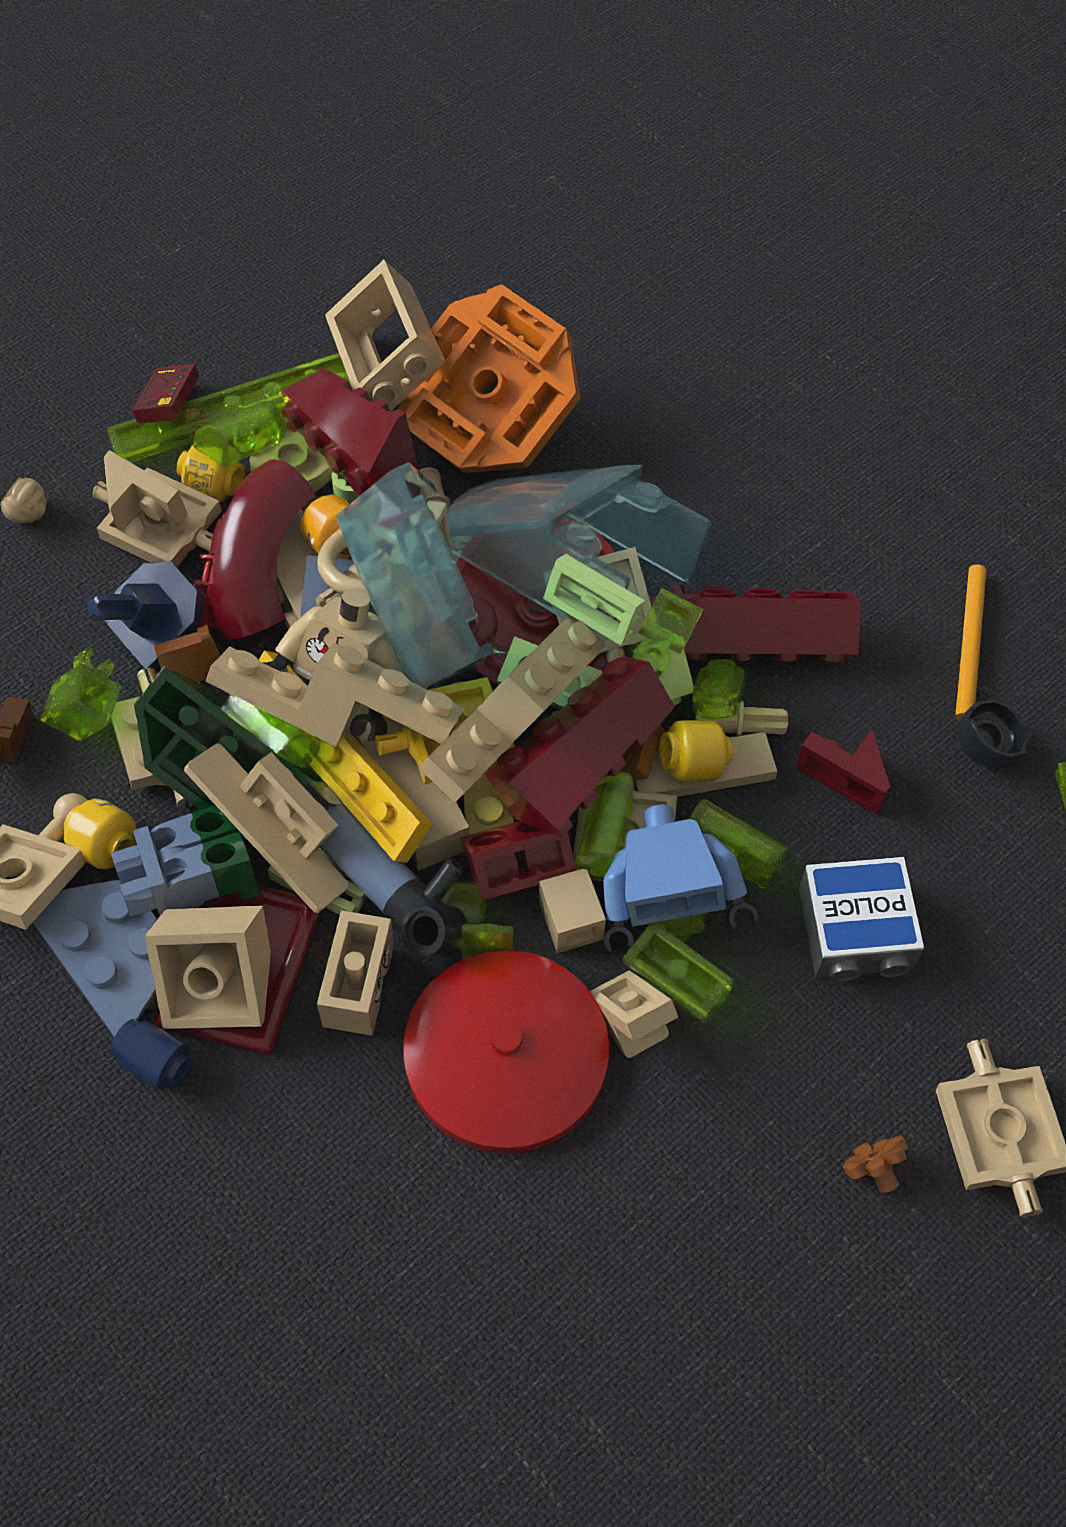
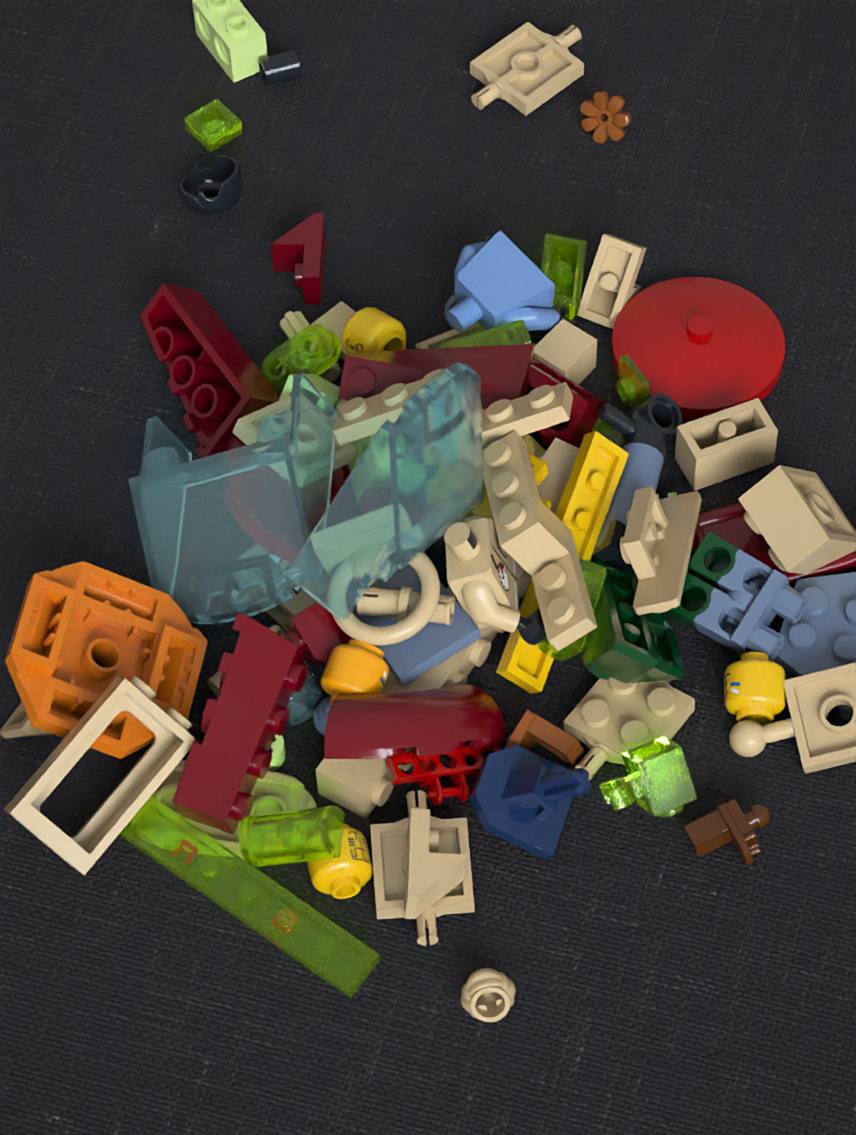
camera: 120 degrees left, 5 degrees down
(165, 393) = (275, 956): dark red tile -> none
(594, 592) = (322, 403): yellowish green tile -> none
(667, 628) = (280, 370): clear neon green plate -> none
(755, 851) = (424, 294): clear neon green brick -> none
(860, 918) = (433, 196): piece -> none
(971, 639) = (119, 245): light orange bar -> none

